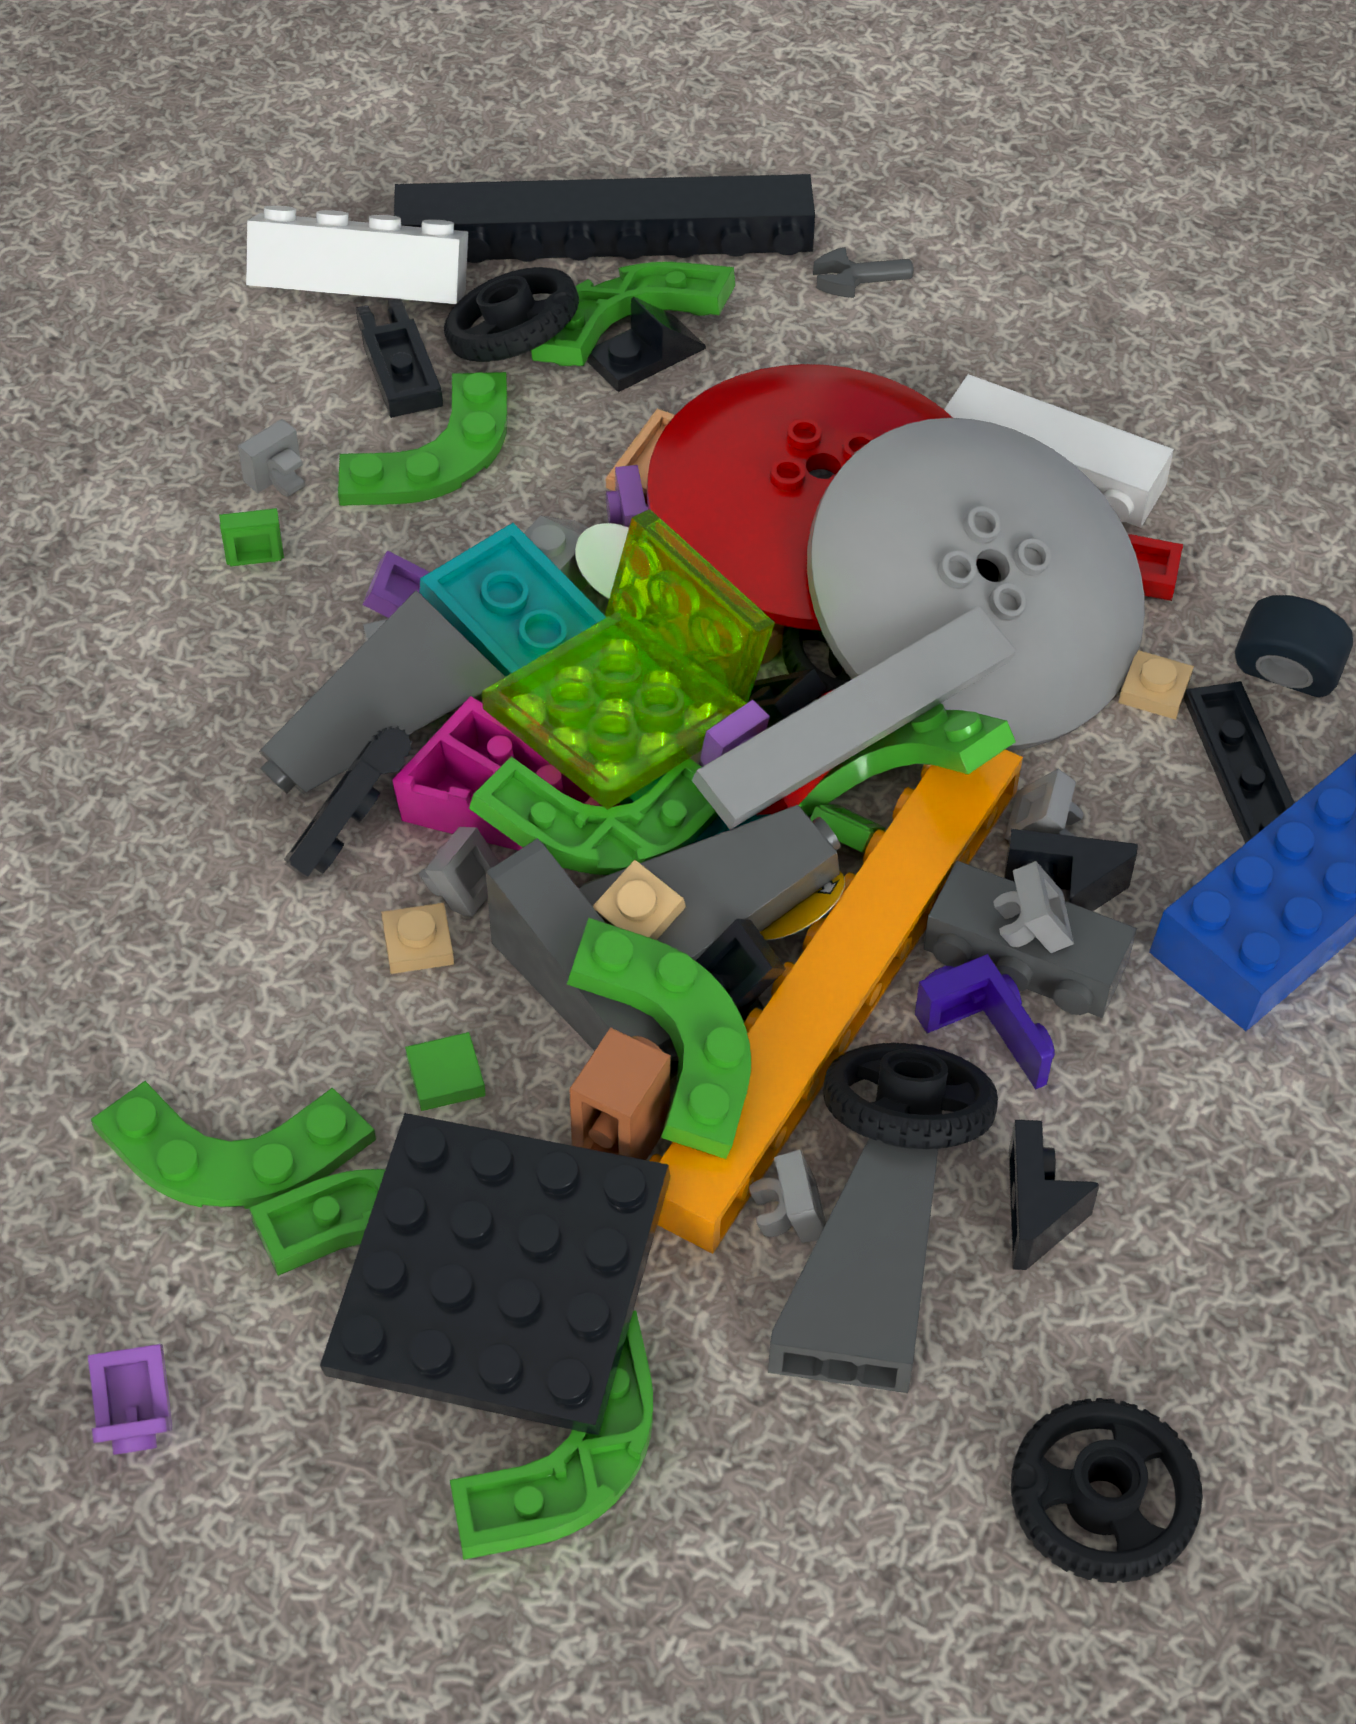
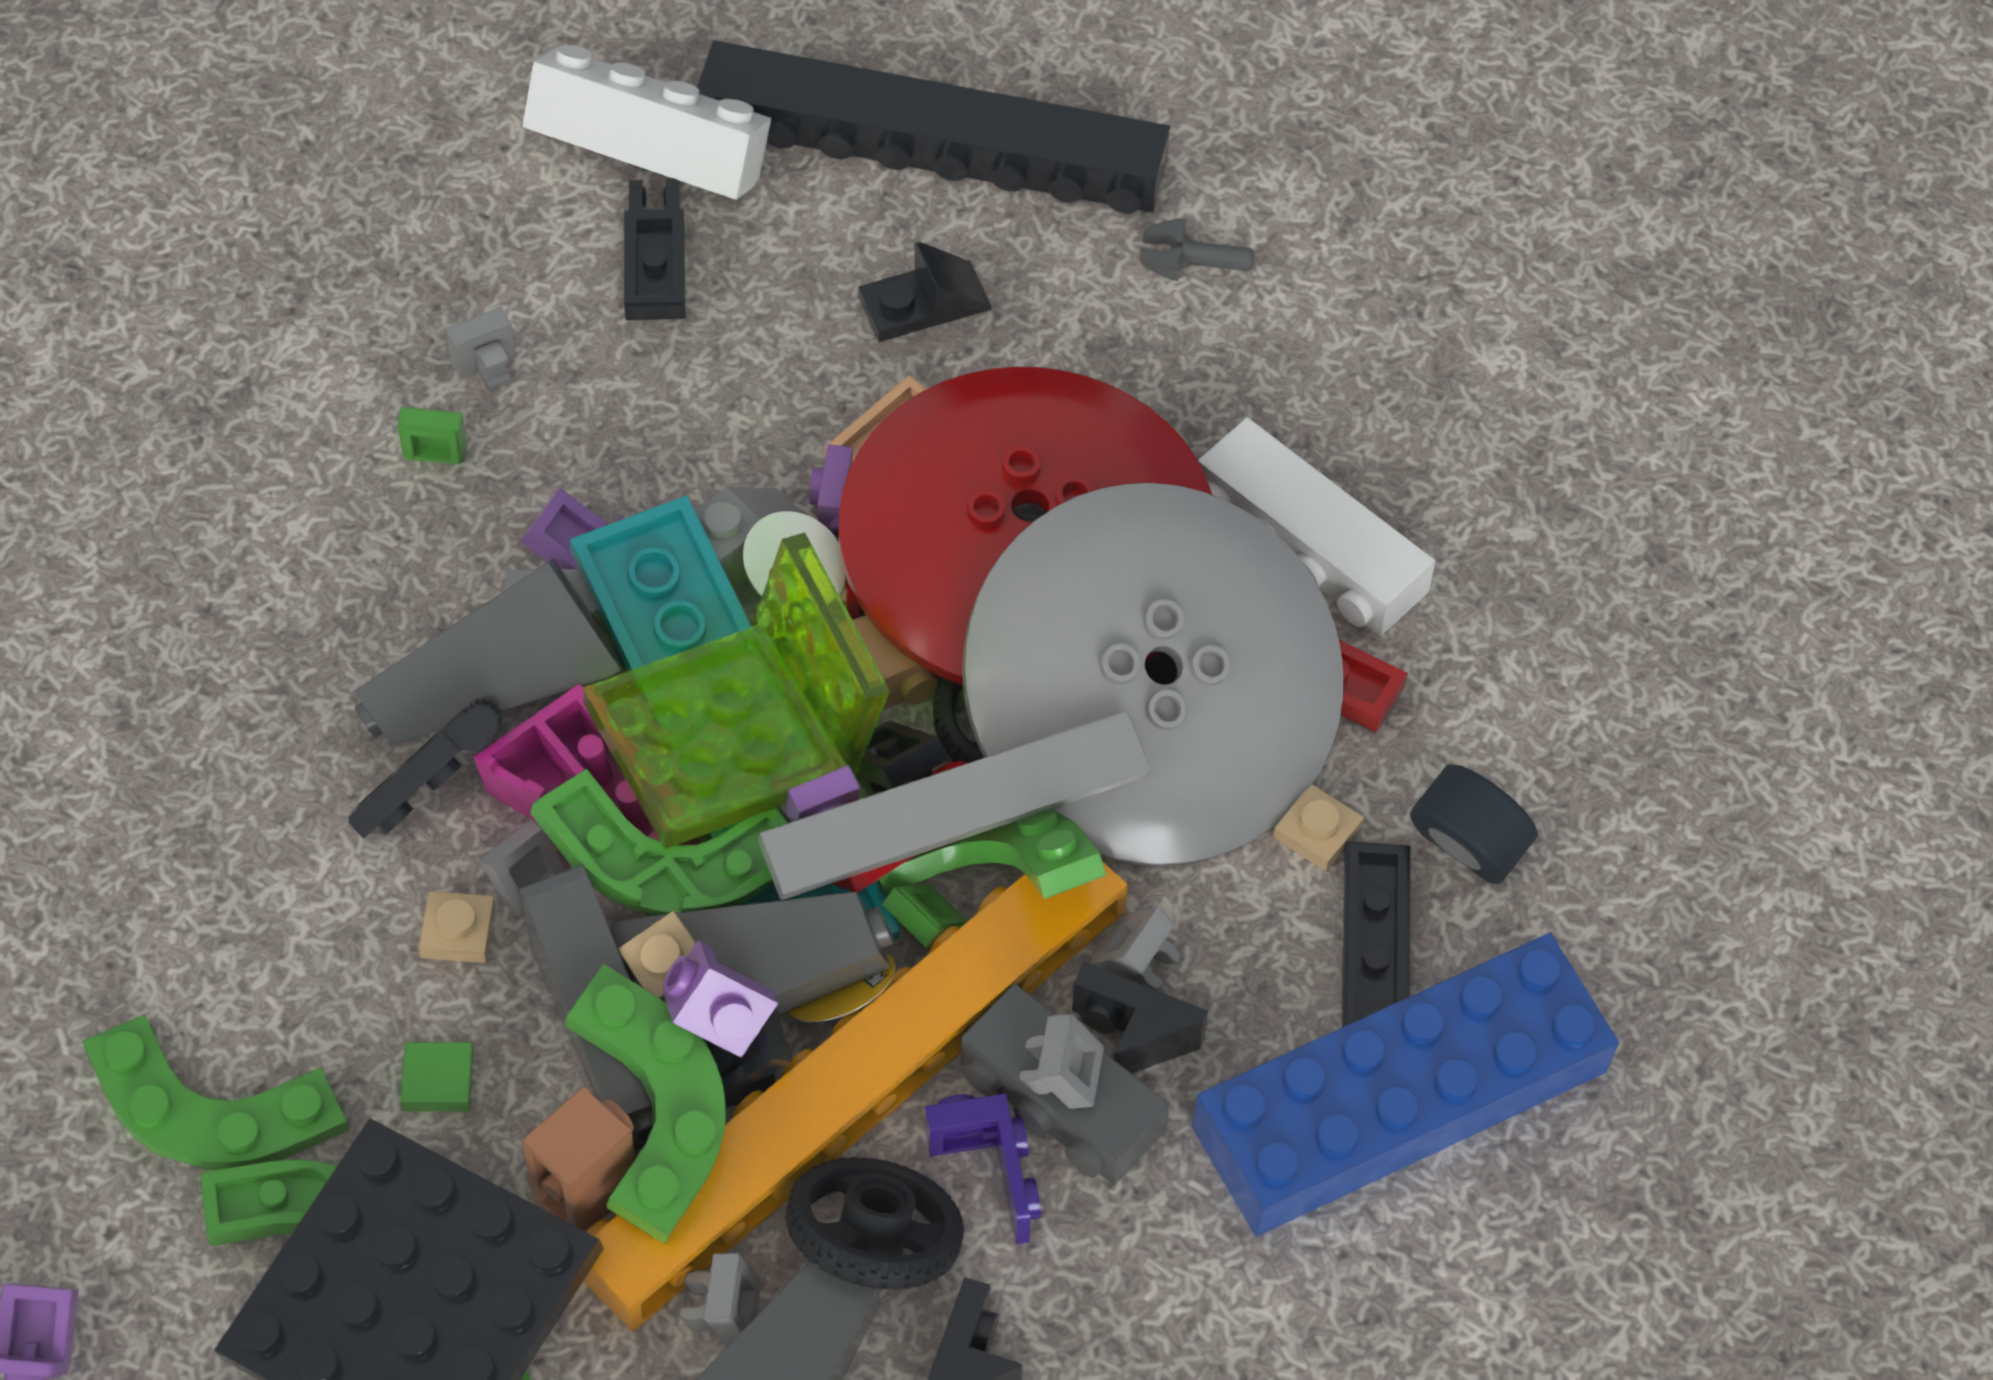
camera: 15 degrees right, 5 degrees up
(440, 467) = (666, 388): bright green plate -> none
(511, 315) = (787, 228): black wheel -> none
(665, 285) = (882, 234): bright green plate -> none
(705, 924) = (716, 1000): none -> bracket

